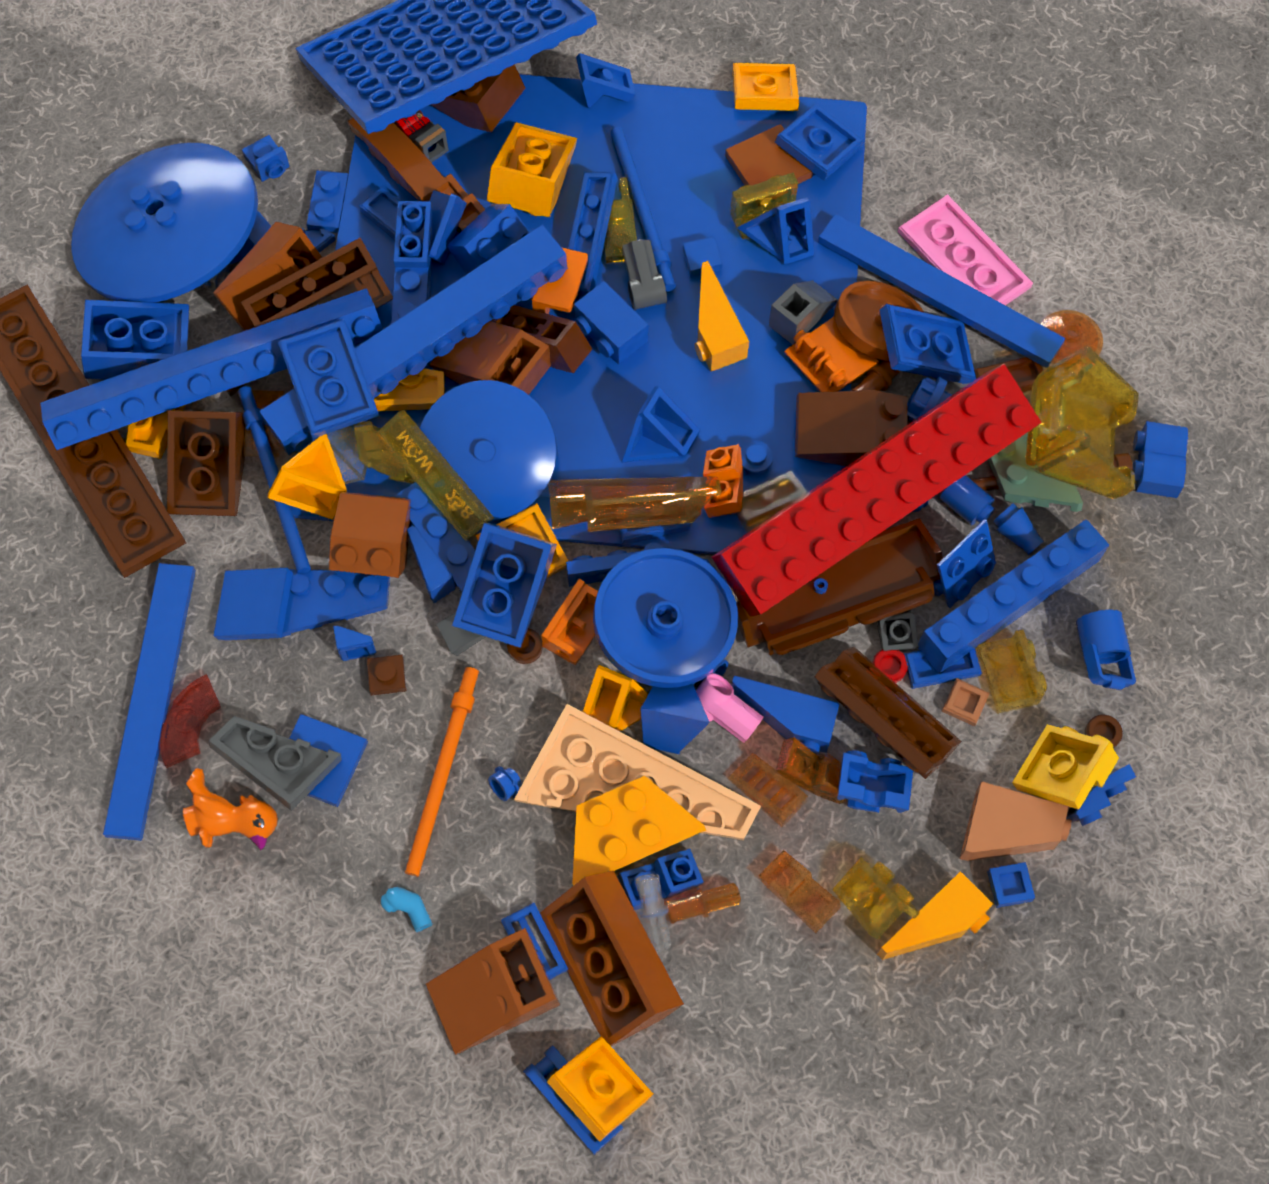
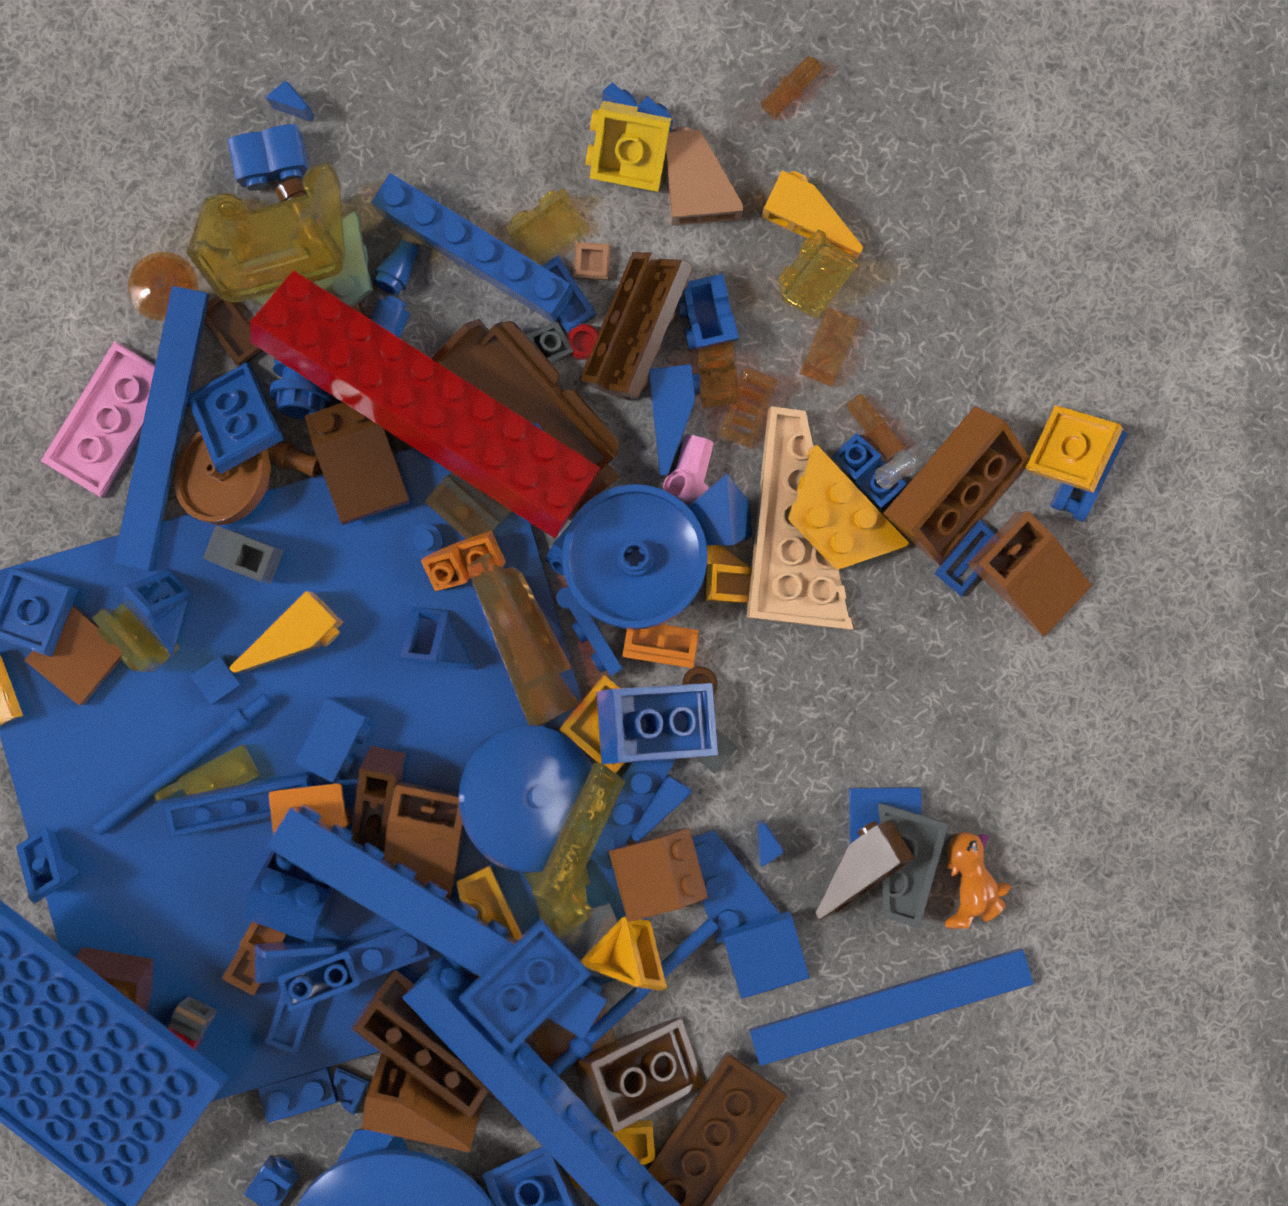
camera: 110 degrees left, 20 degrees up
(185, 719) = (897, 964): clear red tile -> none
(289, 714) = (865, 864): none -> slope
(386, 674) = (780, 799): reddish brown plate -> none
(403, 160) = (233, 1021): dark orange slope -> none
(409, 902) = (980, 683): dark azure arm -> none
(461, 705) = (780, 717): orange bar -> none
(508, 780) = (839, 644): blue plate -> none
(531, 169) = (182, 897): light orange slope -> none
(644, 284) = (274, 724): dark grey piece -> none
(828, 357) = (286, 510): orange hinge -> none
(965, 565) = (448, 294): blue hinge -> none
(1011, 885) = (750, 164): blue plate -> none
(1079, 958) = (791, 87): none -> clear orange axle
(1105, 726) = (571, 129): reddish brown tile -> none
(1106, 642) = (485, 154): blue piece -> none
(1208, 495) = (287, 100): none -> blue slope

